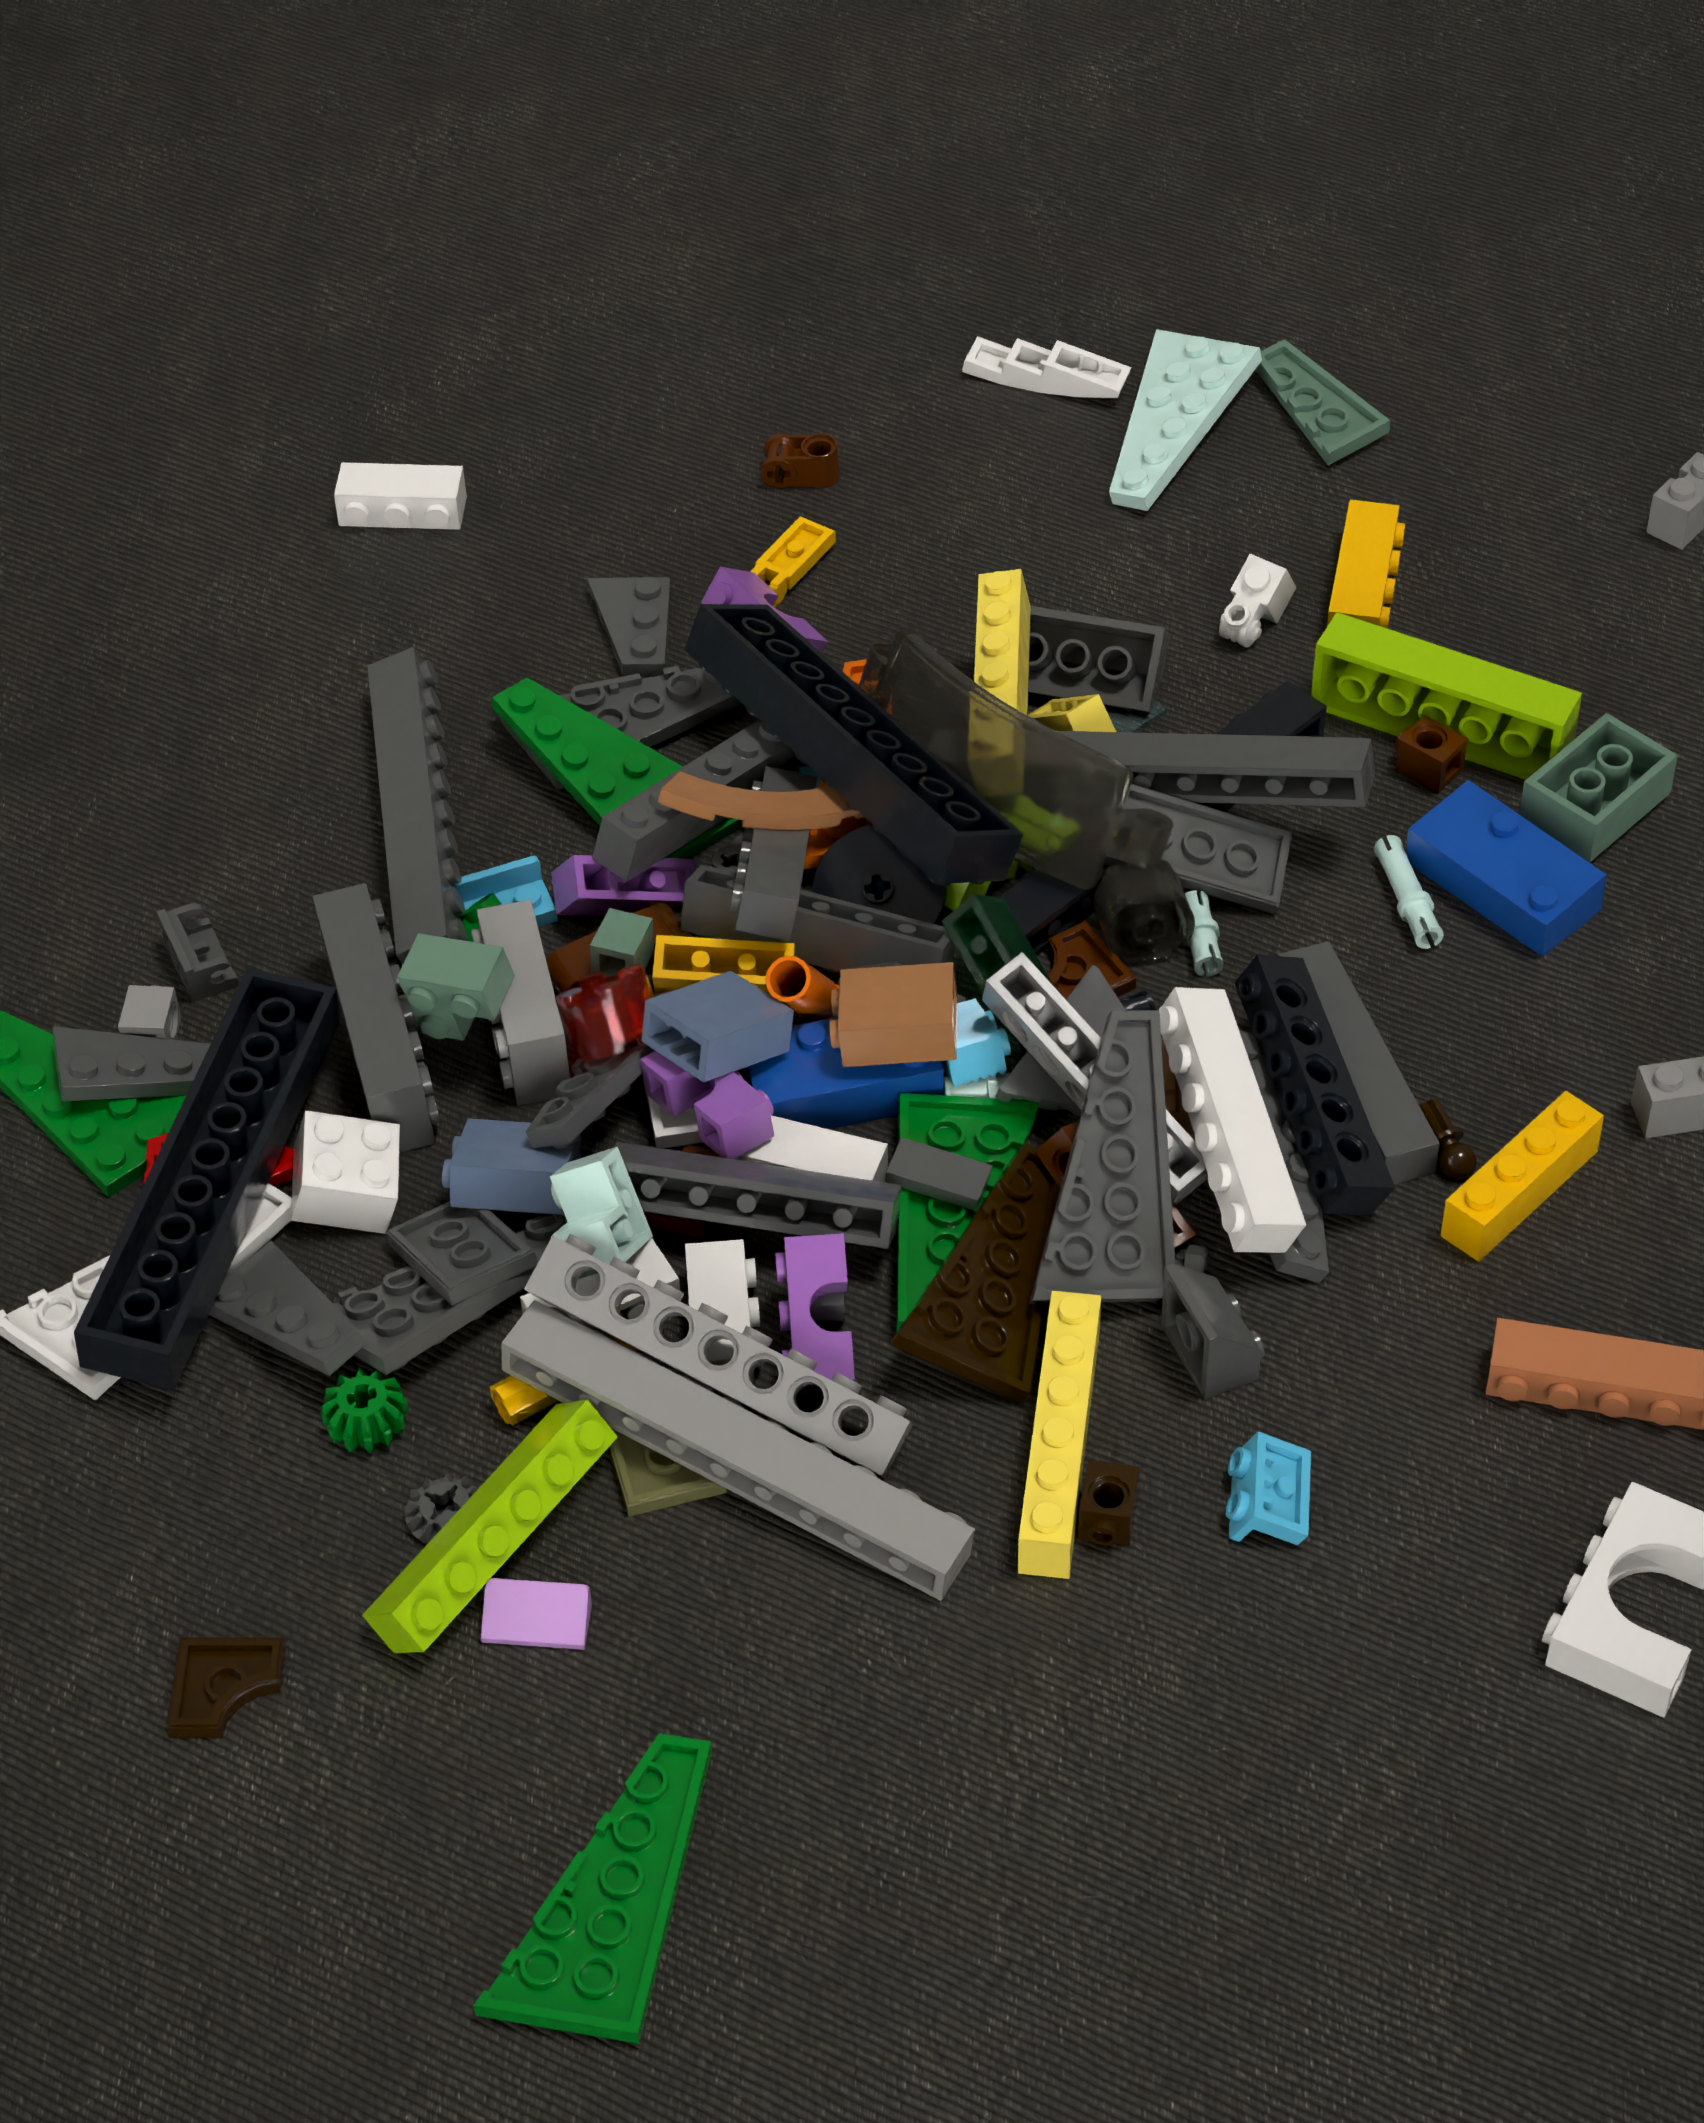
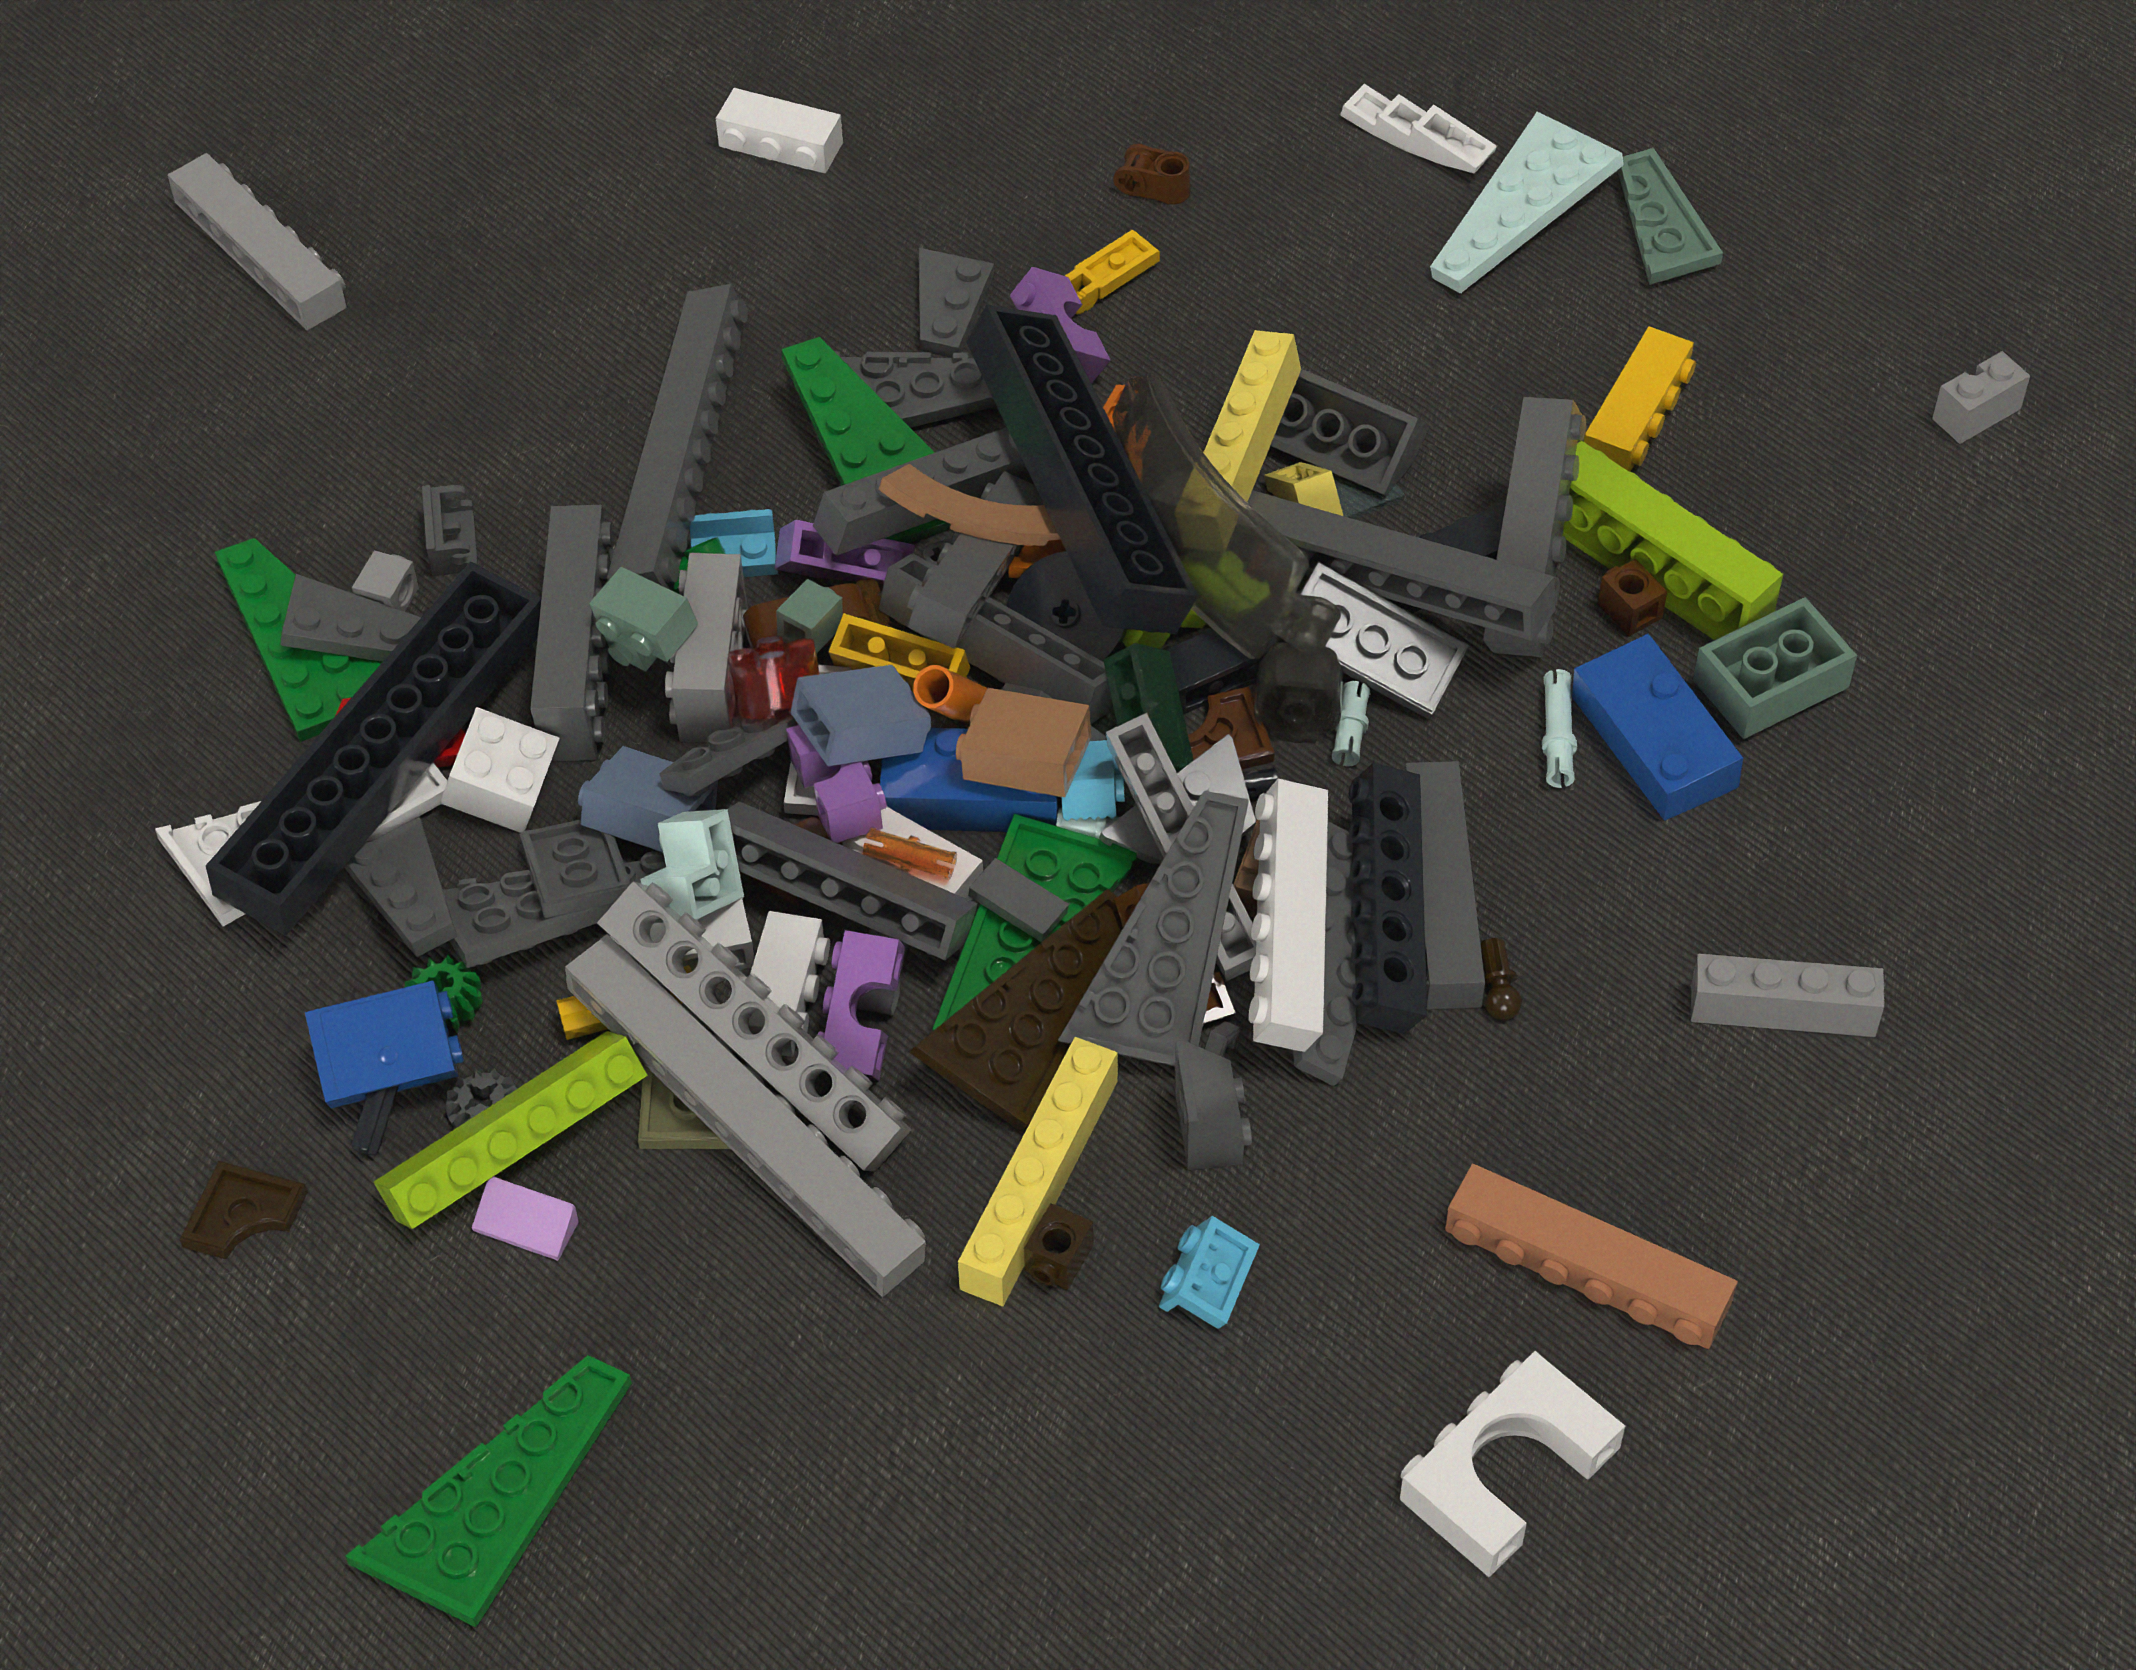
camera: 15 degrees right, 5 degrees up
(324, 1477) = (380, 1048): none -> blue piece
(814, 1152) = (910, 853): none -> clear orange pin
(1258, 593) = (1503, 420): white brick -> none
(1319, 677) = (1539, 503): none -> dark grey brick
(1521, 1176) = (1554, 1031): yellow brick -> none

